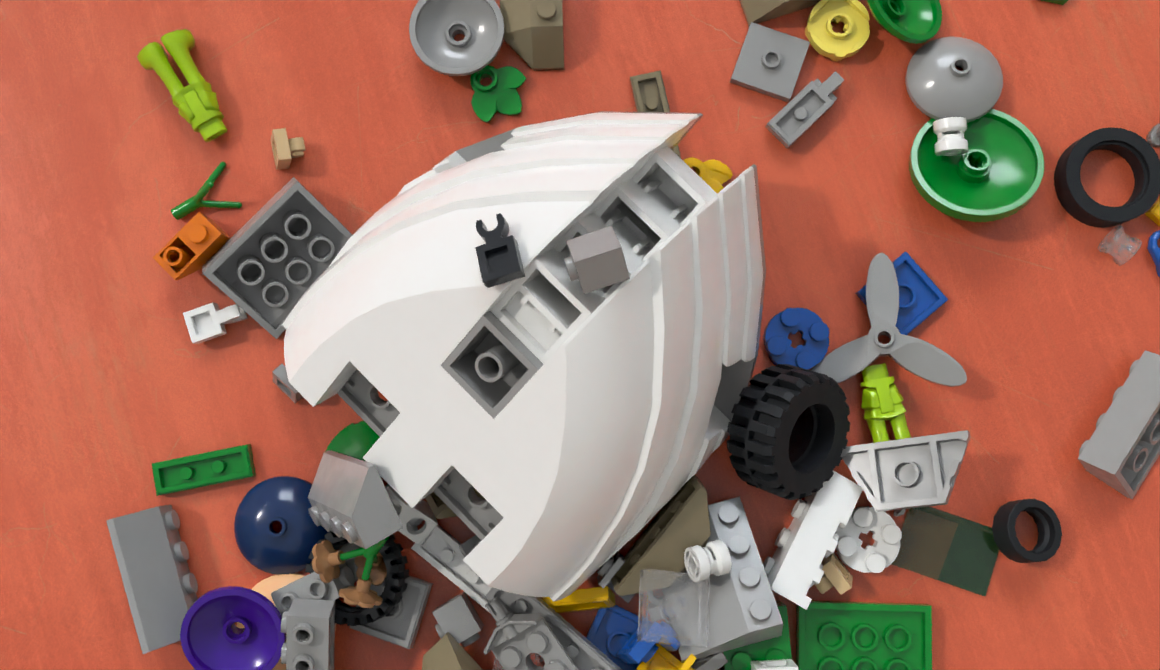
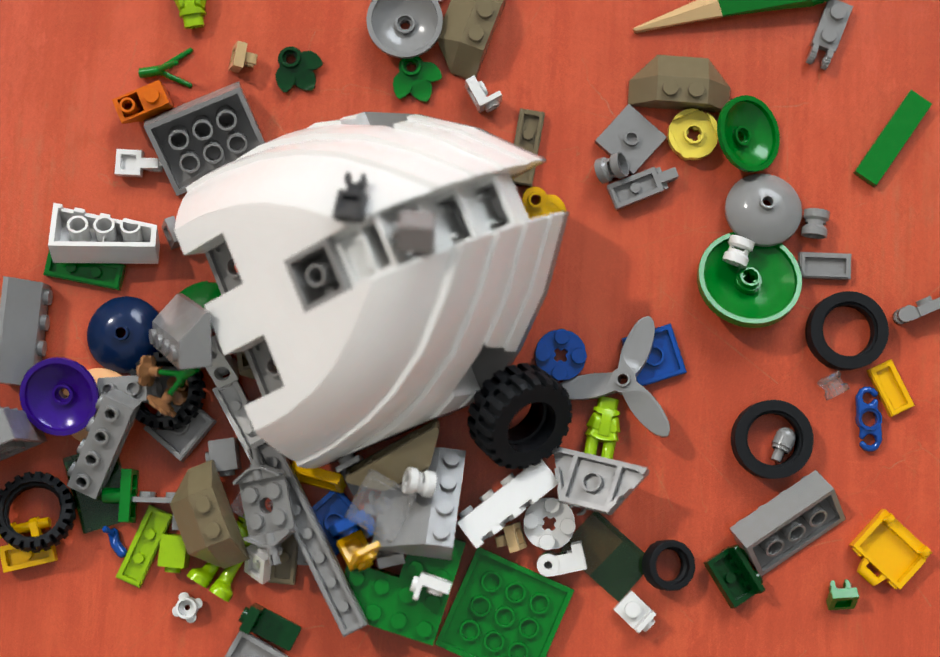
camera: 20 degrees right, 0 degrees up
(206, 426) = (100, 239): none -> white wedge
(359, 139) = (298, 73): none -> dark green plate
(575, 79) = (478, 93): none -> white bracket
(764, 101) = (611, 167): none -> light grey wheel
(904, 578) = (564, 562): none -> white leg
(1011, 601) = (635, 612): none -> white bracket
(1019, 69) = (815, 221): none -> light grey wheel
(1050, 113) = (825, 265): none -> light grey tile
(1091, 335) = (782, 443): none -> light grey cylinder
(1106, 510) = (734, 575): none -> dark green bracket
(1114, 319) = (803, 433): none -> black tyre

